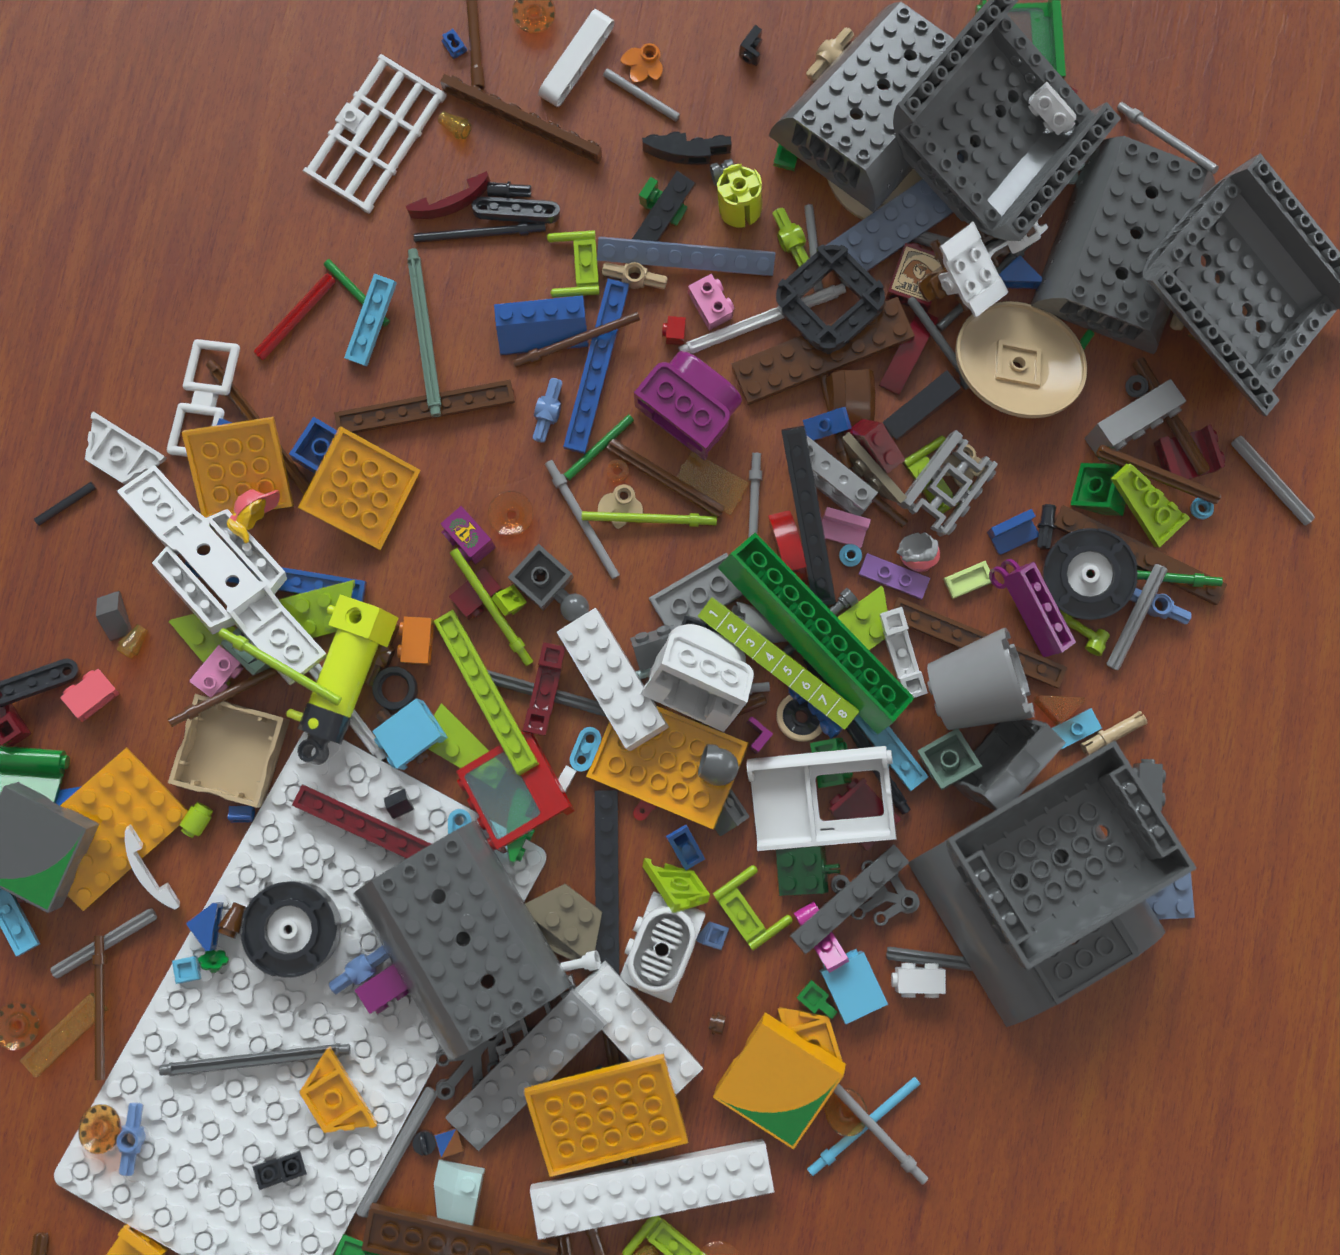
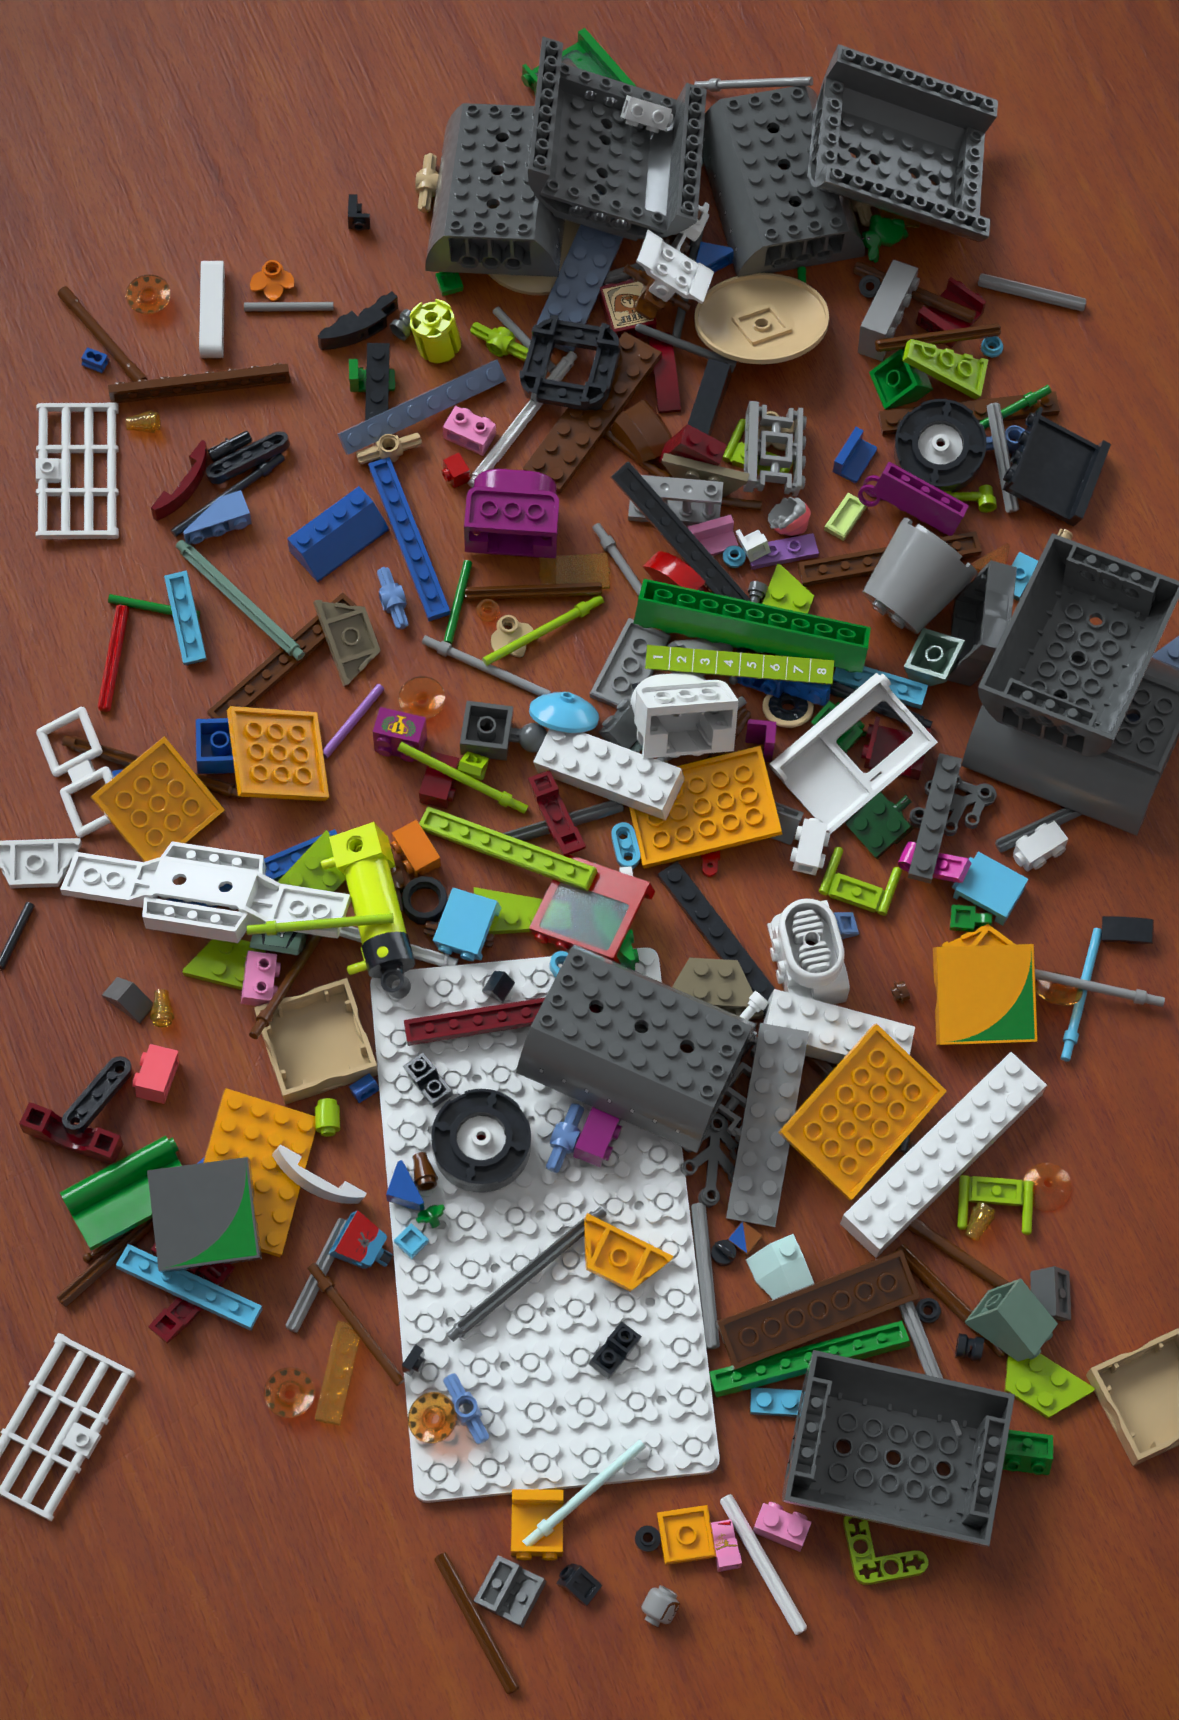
camera: 35 degrees left, 15 degrees down
(119, 1072) = (414, 1360): none -> black plate
(148, 943) = (360, 1243): none -> torso
(250, 508) = (192, 828): hair -> none
(289, 845) = (428, 1080): none -> black slope
(444, 495) = (352, 721): none -> medium lavender bar
(460, 248) = (223, 515): none -> medium blue slope
(487, 422) = (348, 637): none -> dark tan wing
(536, 355) = (350, 561): reddish brown bar -> none
(585, 263) = (338, 464): lime plate -> none
(611, 605) = (564, 712): none -> medium azure dish
(677, 887) = (782, 896): lime wing -> none
(685, 847) = (768, 866): blue slope -> none
(717, 765) = (752, 772): dark grey helmet -> none
(737, 847) = (811, 838): none -> white brick
(827, 424) = (644, 457): blue plate -> none
(871, 557) = (753, 544): none -> white panel
(901, 651) = (829, 601): white slope -> none
(940, 1099) = (1127, 929): none -> black slope
(1046, 526) = (877, 435): black axle -> none
(1175, 656) = (1055, 469): none -> black panel
(1181, 345) = (883, 232): none -> green animal

